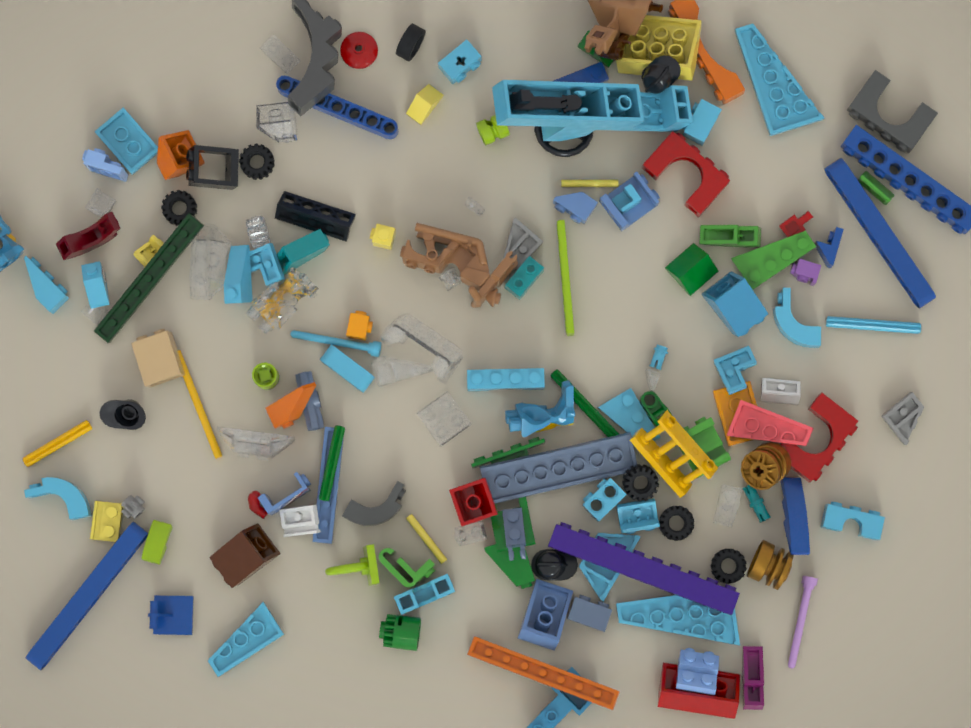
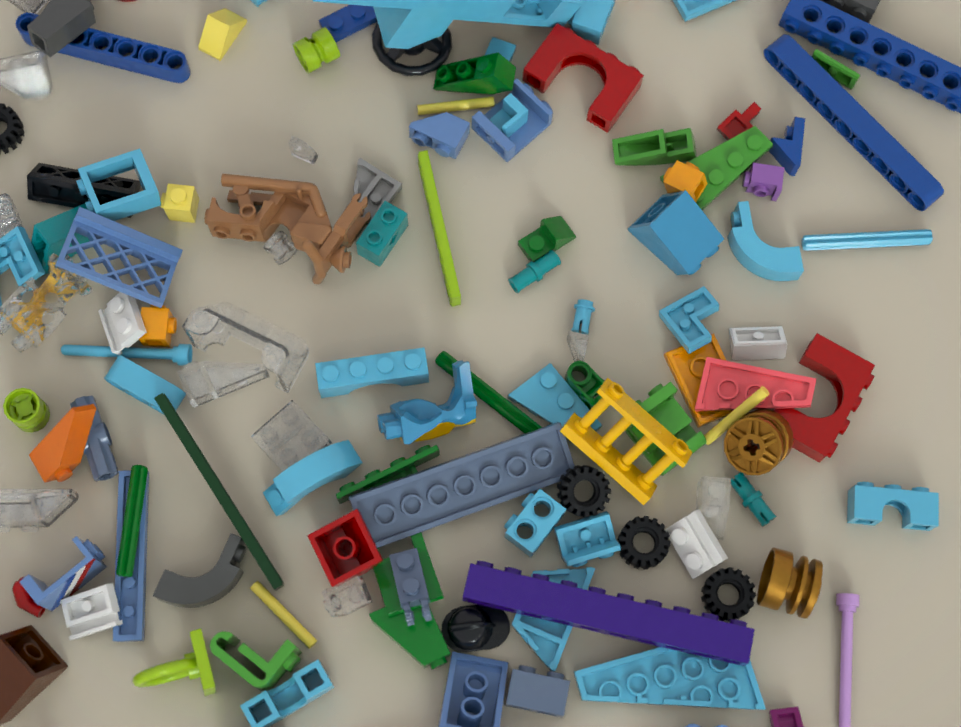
camera: 15 degrees left, 10 degrees down
(336, 320) = (122, 322): none -> white plate
(341, 263) = (125, 242): none -> medium blue fence
(364, 232) = (125, 206): none -> medium azure window
(392, 451) = (219, 491): none -> dark green tile
(456, 447) = (311, 473): none -> medium azure arch
(607, 164) = (477, 75): none -> green slope
(627, 145) = (499, 46): none -> medium azure tile
(629, 319) = (534, 271): none -> teal pin
(641, 295) = (550, 236): none -> green slope
(692, 269) = (610, 197): green slope -> none
(711, 529) = (696, 544): none -> white plate
(747, 267) = (685, 177): none -> light orange brick
(754, 444) = (736, 414): none -> light yellow bar
(795, 516) = (813, 509): blue slope -> none
(903, 416) = (933, 355): light grey wing -> none

